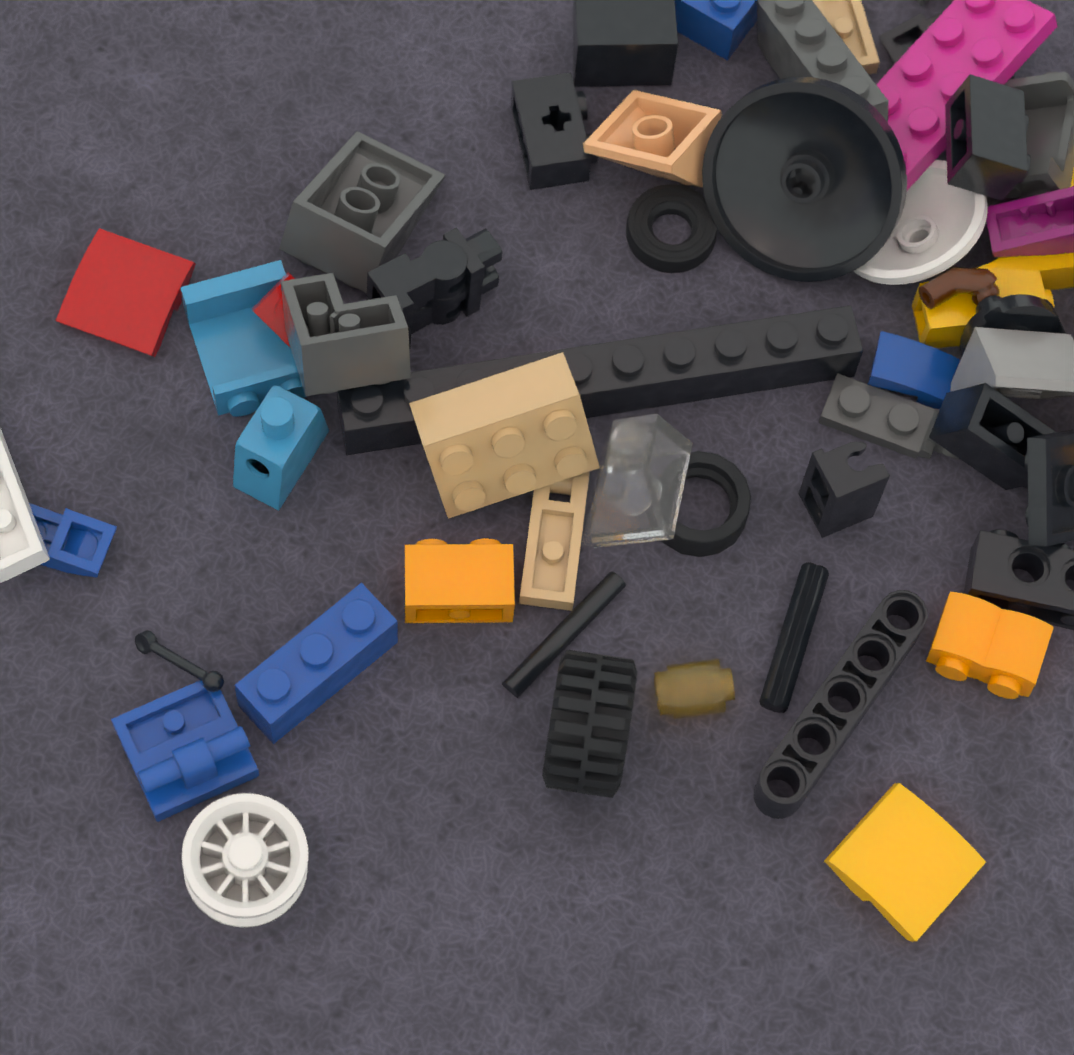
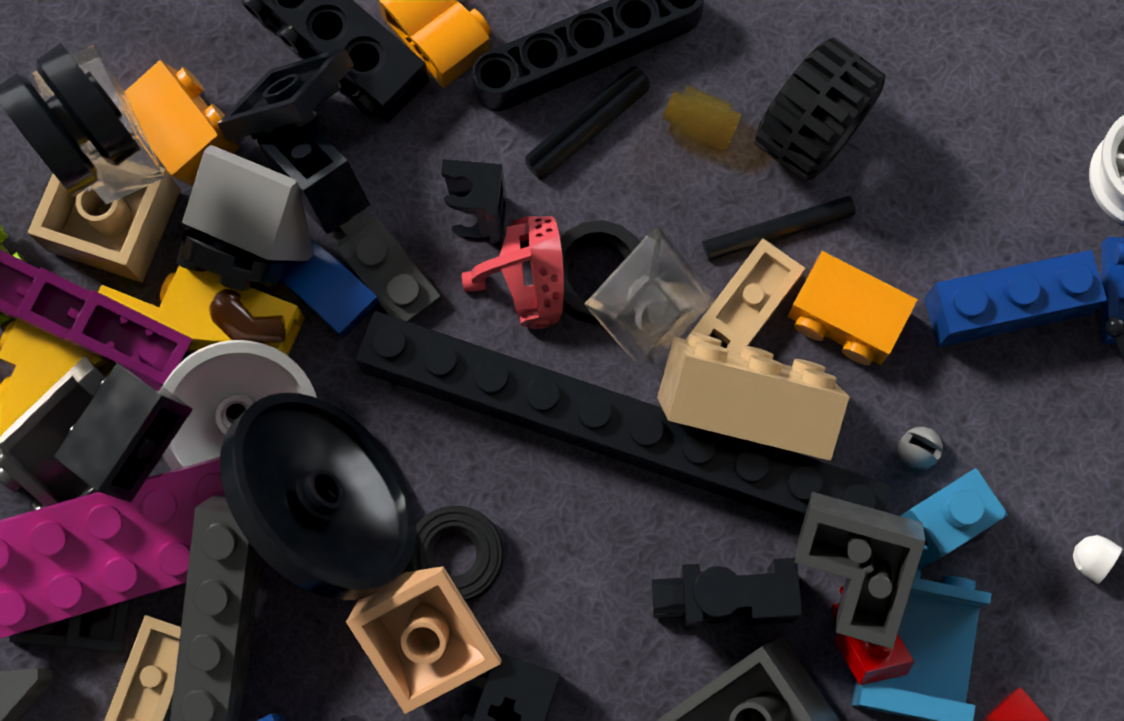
camera: 140 degrees left, 10 degrees up
(135, 488) = (1096, 557): none -> white hinge
(332, 511) = (916, 455): none -> light grey hinge
(754, 460) = (543, 300): none -> coral helmet

